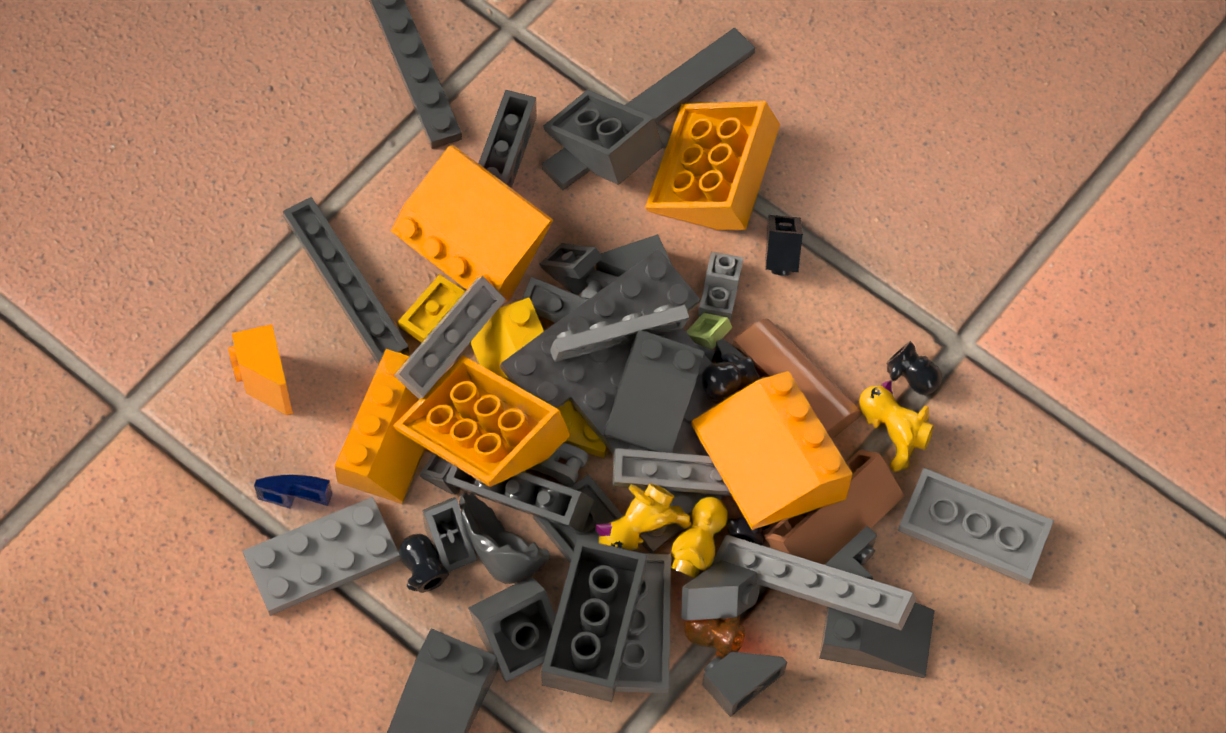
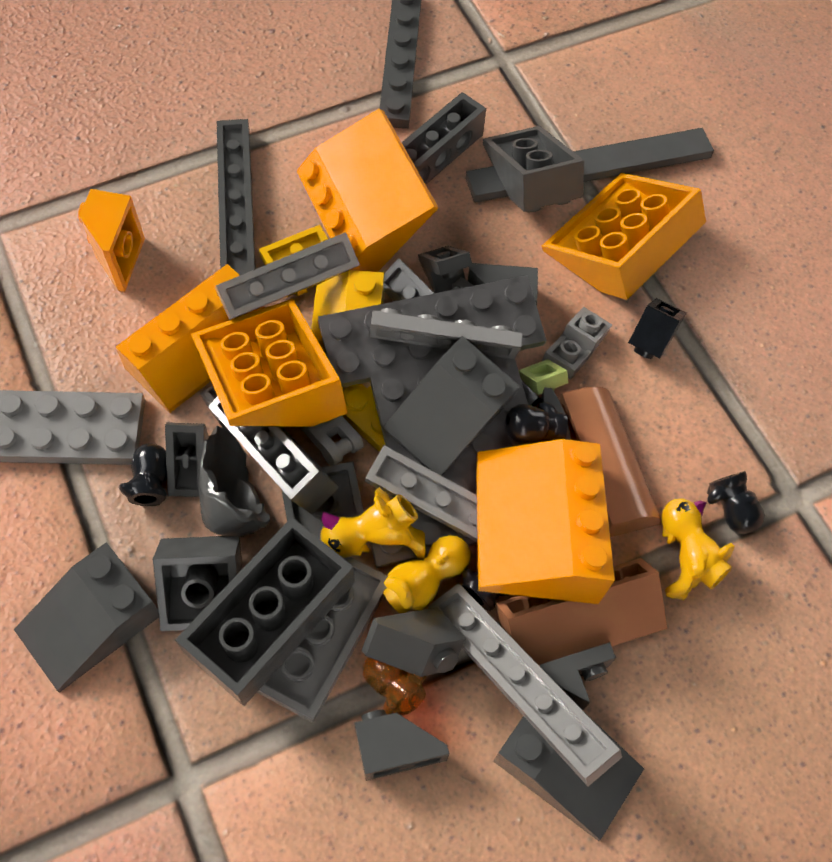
camera: 25 degrees right, 0 degrees up
(284, 488) = (72, 353): clear blue slope -> none
(976, 525) = (733, 698): light grey plate -> none

